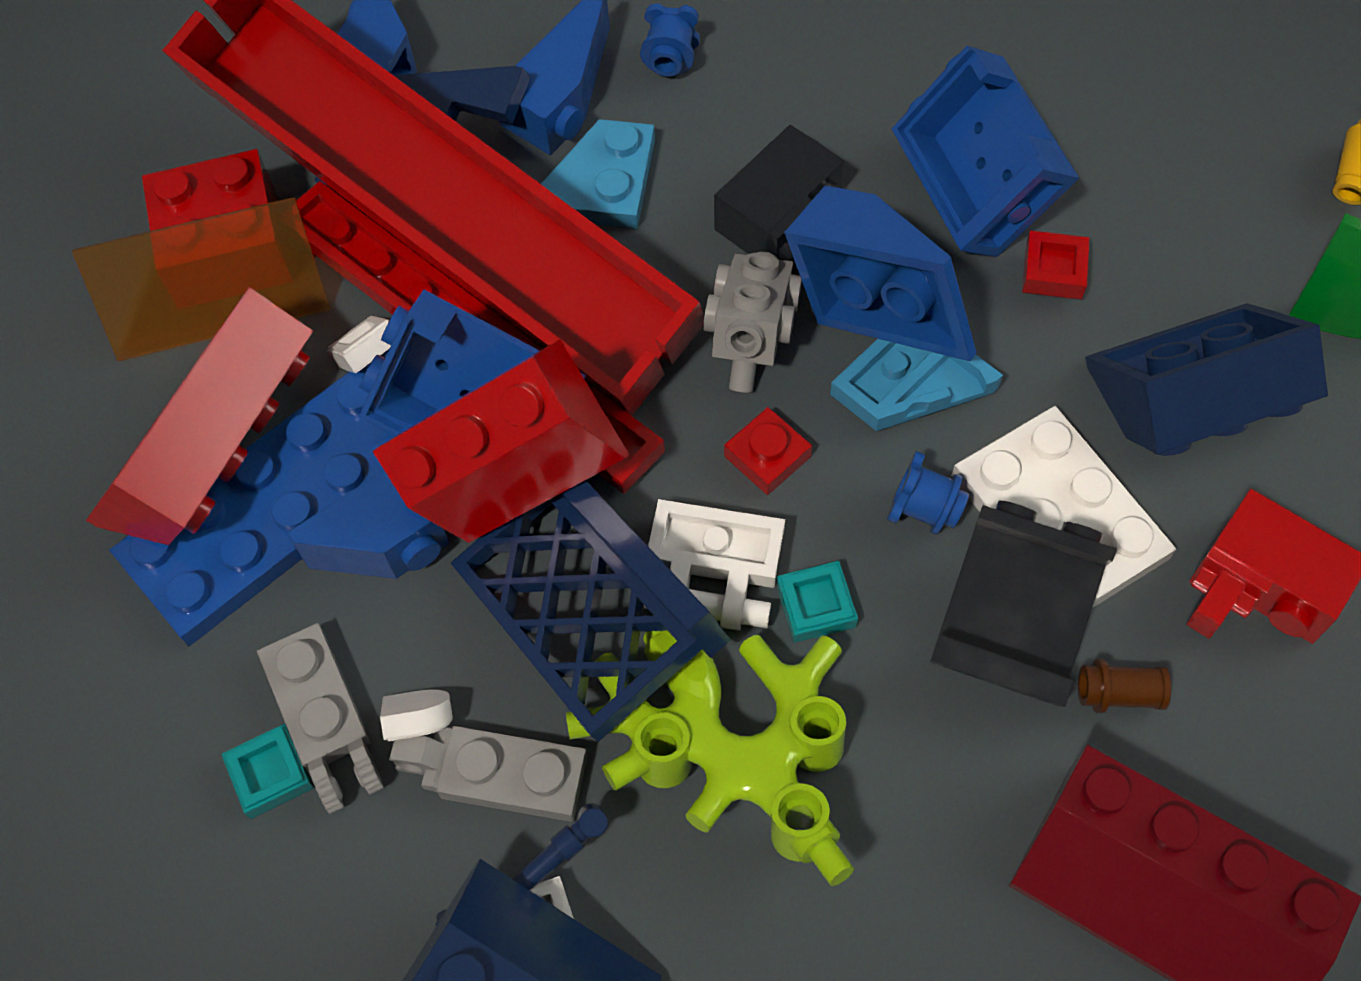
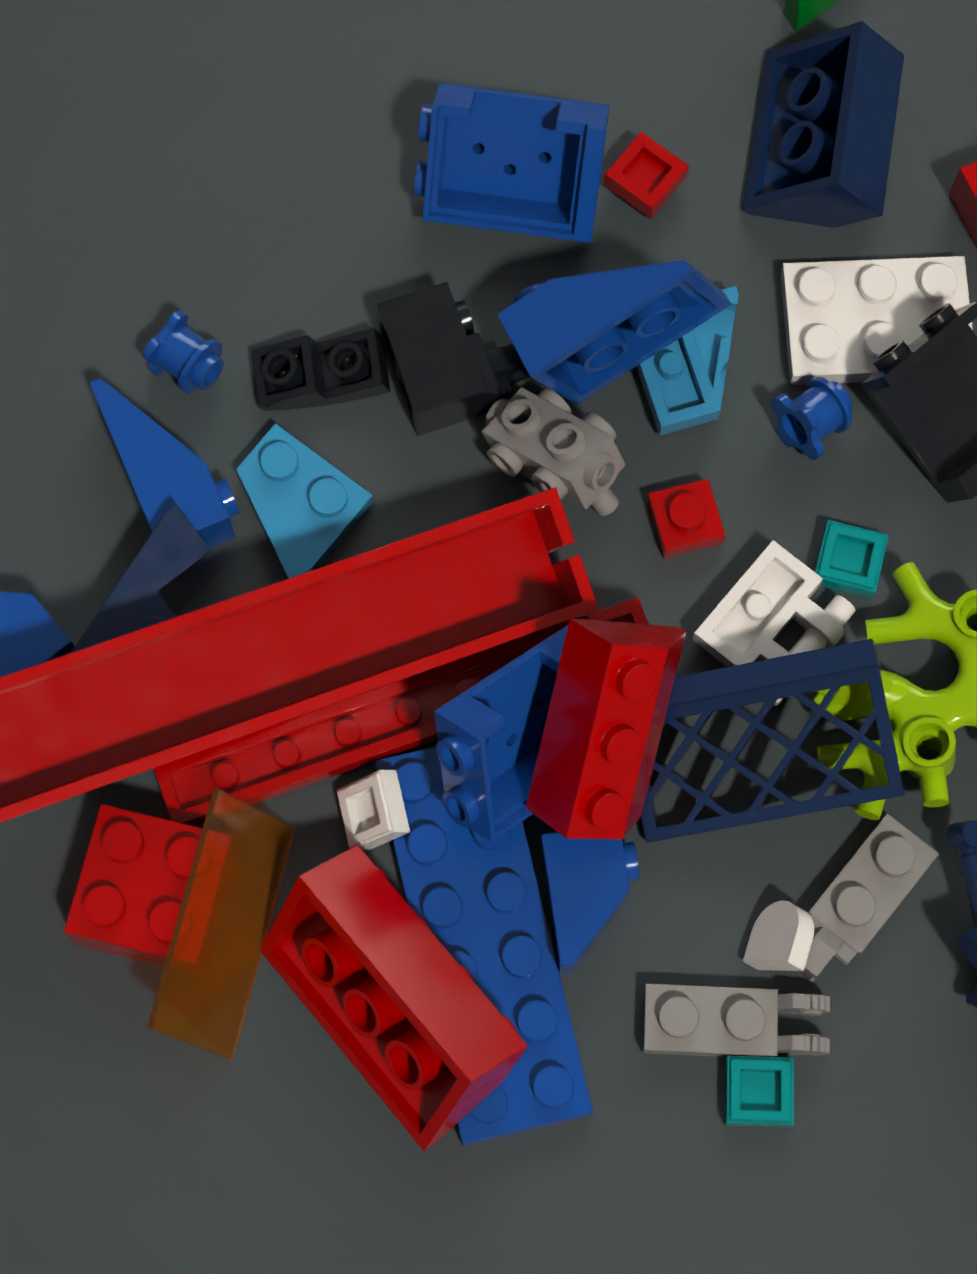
camera: 65 degrees left, 10 degrees up
(715, 130) = (322, 373): none -> black slope

